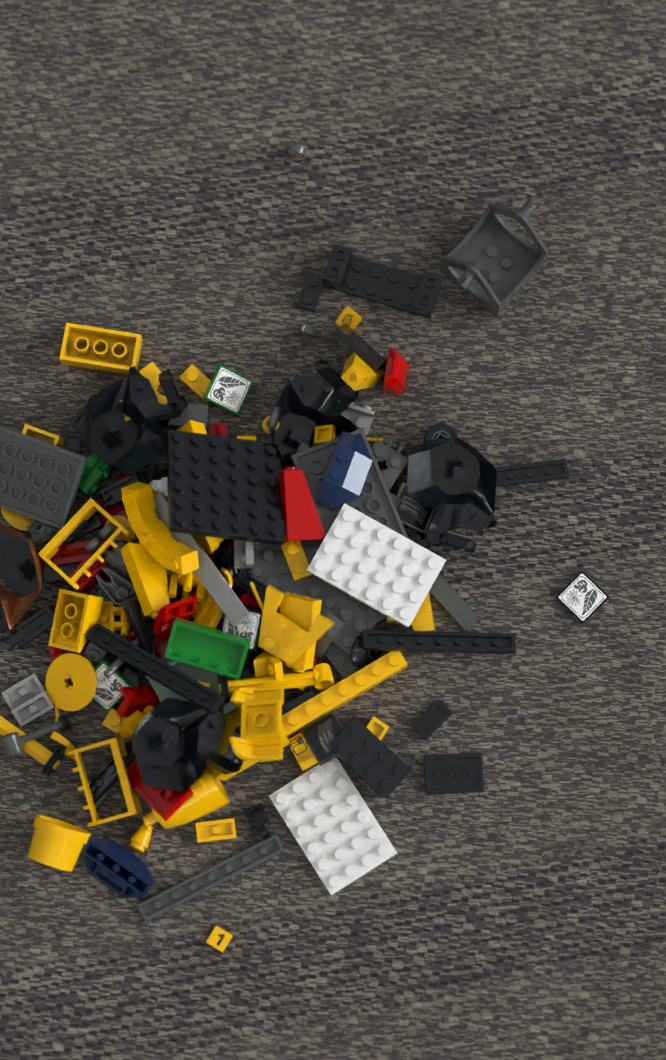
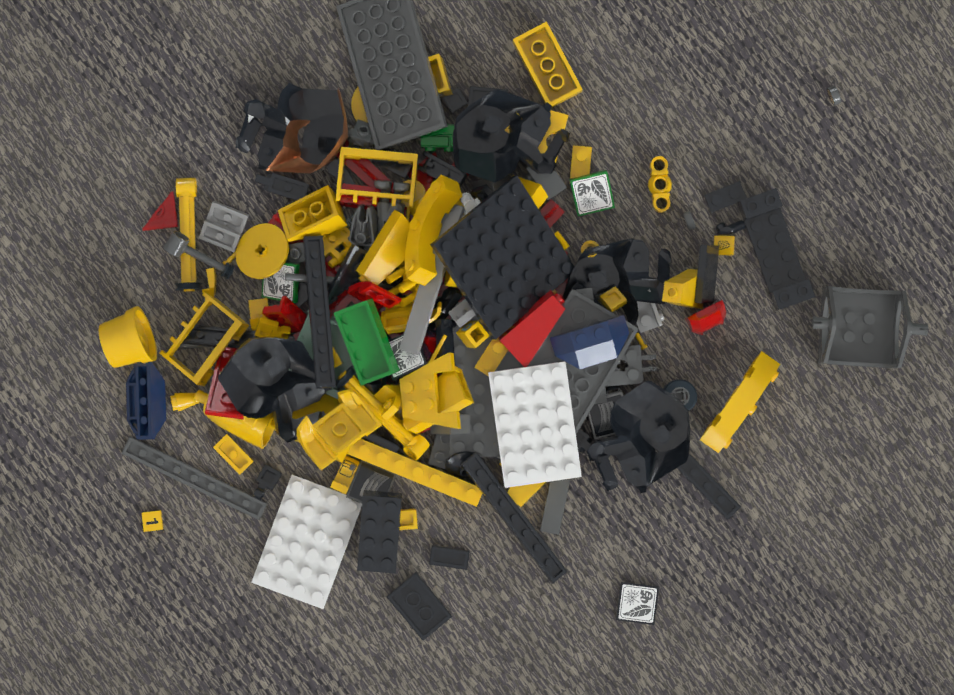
camera: 50 degrees right, 10 degrees up
(256, 326) = (659, 175): none -> yellow piece
(266, 560) = (472, 334): none -> yellow brick
(339, 305) = (730, 229): none -> black arm
(483, 397) = (741, 402): none -> yellow brick

